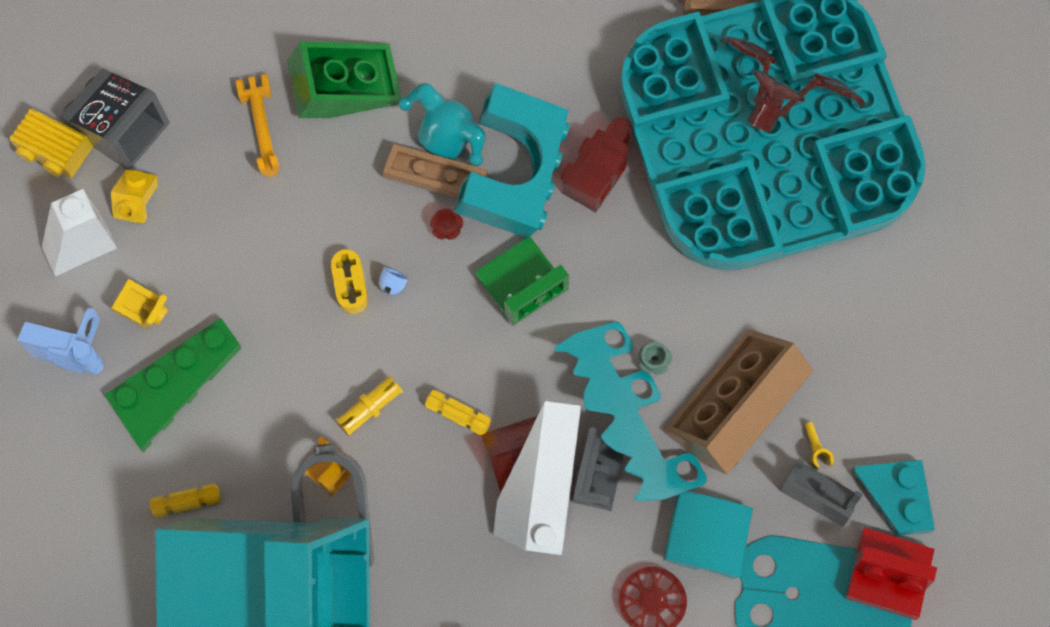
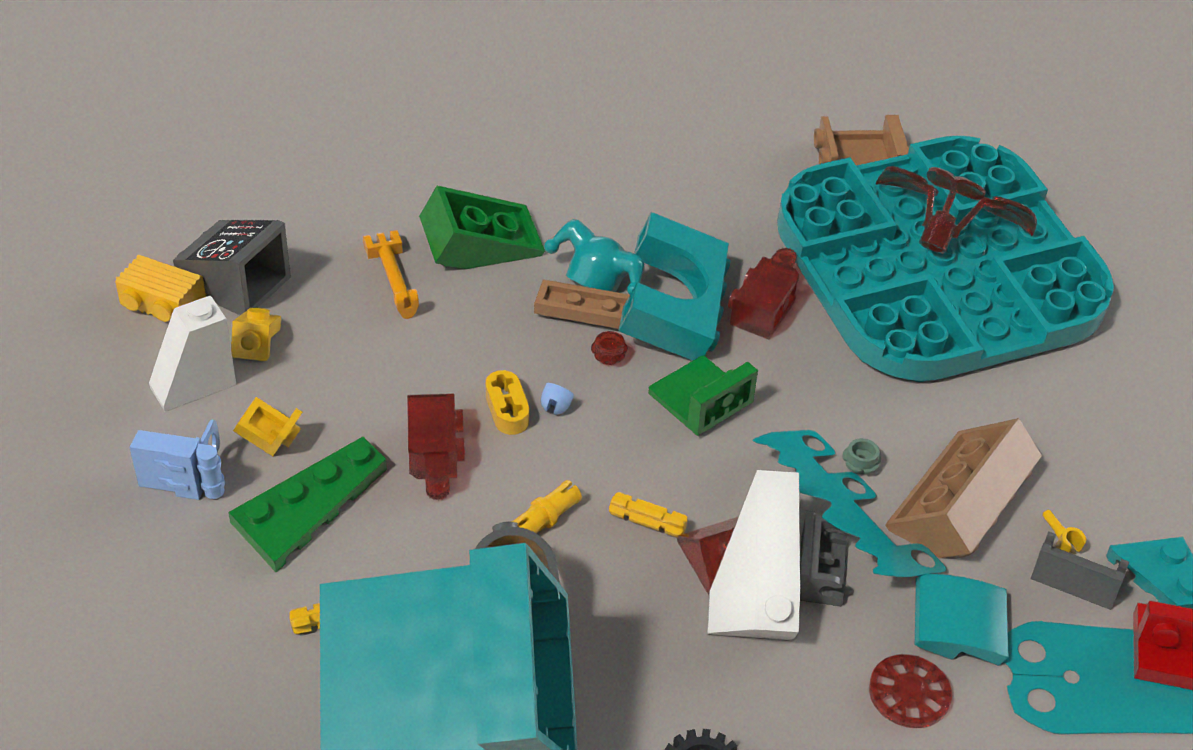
camera: 10 degrees left, 25 degrees down
(280, 327) = (433, 441): none -> clear red hinge

